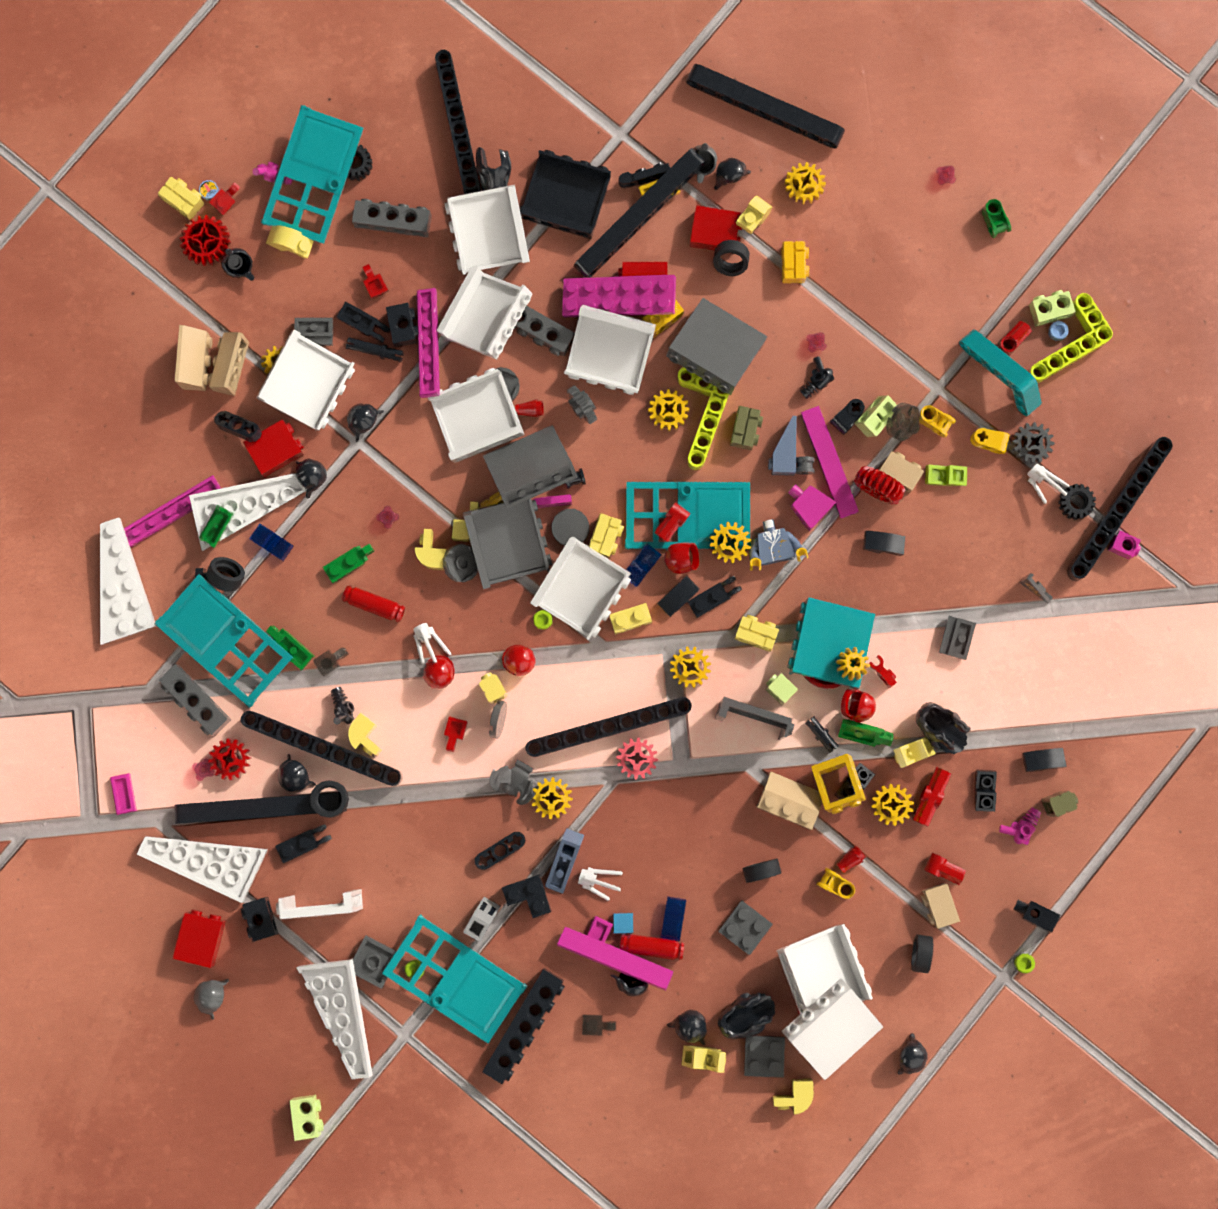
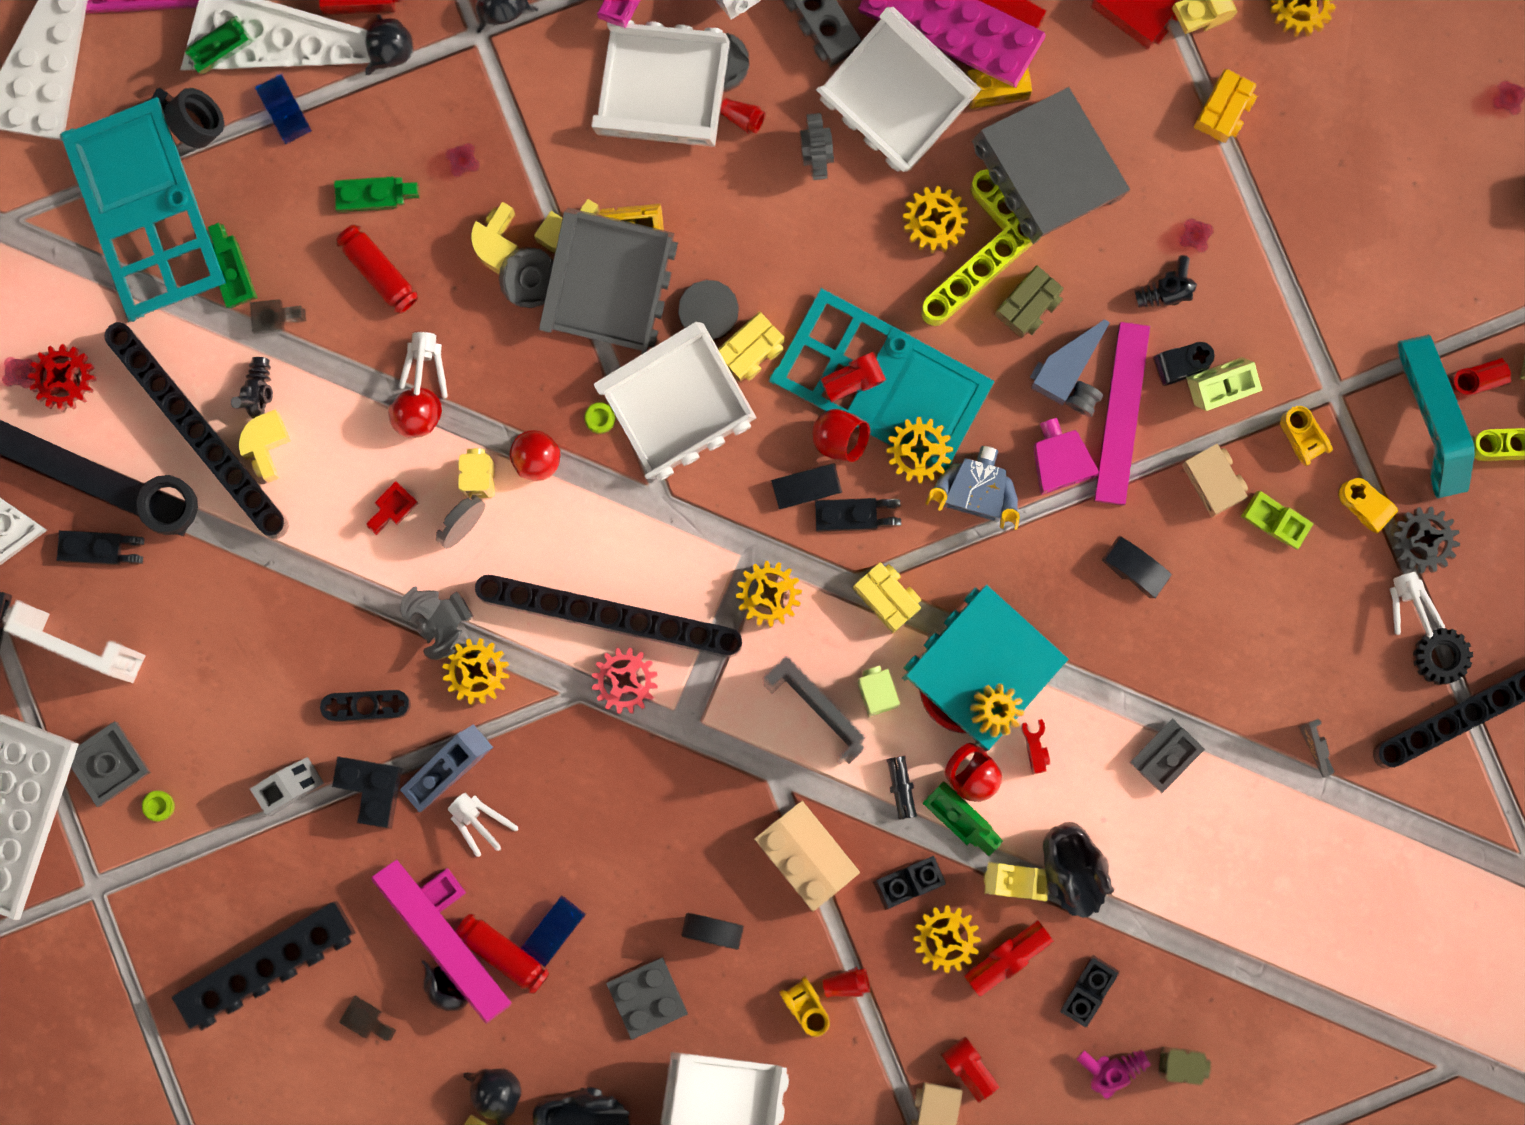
camera: 25 degrees right, 0 degrees up
(218, 718) = (78, 312): dark grey brick -> none
(293, 776) = (136, 447): black hair -> none
(471, 990) = (218, 876): teal door -> none
(530, 466) = (695, 193): dark grey panel -> none
(552, 501) = (704, 260): dark pink tile -> none
(580, 480) = (751, 244): black bush -> none
(623, 922) = (480, 899): dark azure tile -> none
(630, 618) = (721, 481): light yellow brick -> none
(643, 564) = (781, 415): clear blue slope -> none
(734, 247) = (1150, 39): black tyre -> none
(829, 766) = (889, 837): yellow window -> none
(879, 485) = (1173, 482): red gear -> none
(906, 414) = (1264, 422): clear smoke plate -> none
(1044, 759) = (1195, 993): black slope -> none
(1116, 545) = (1464, 748): dark pink brick -> none

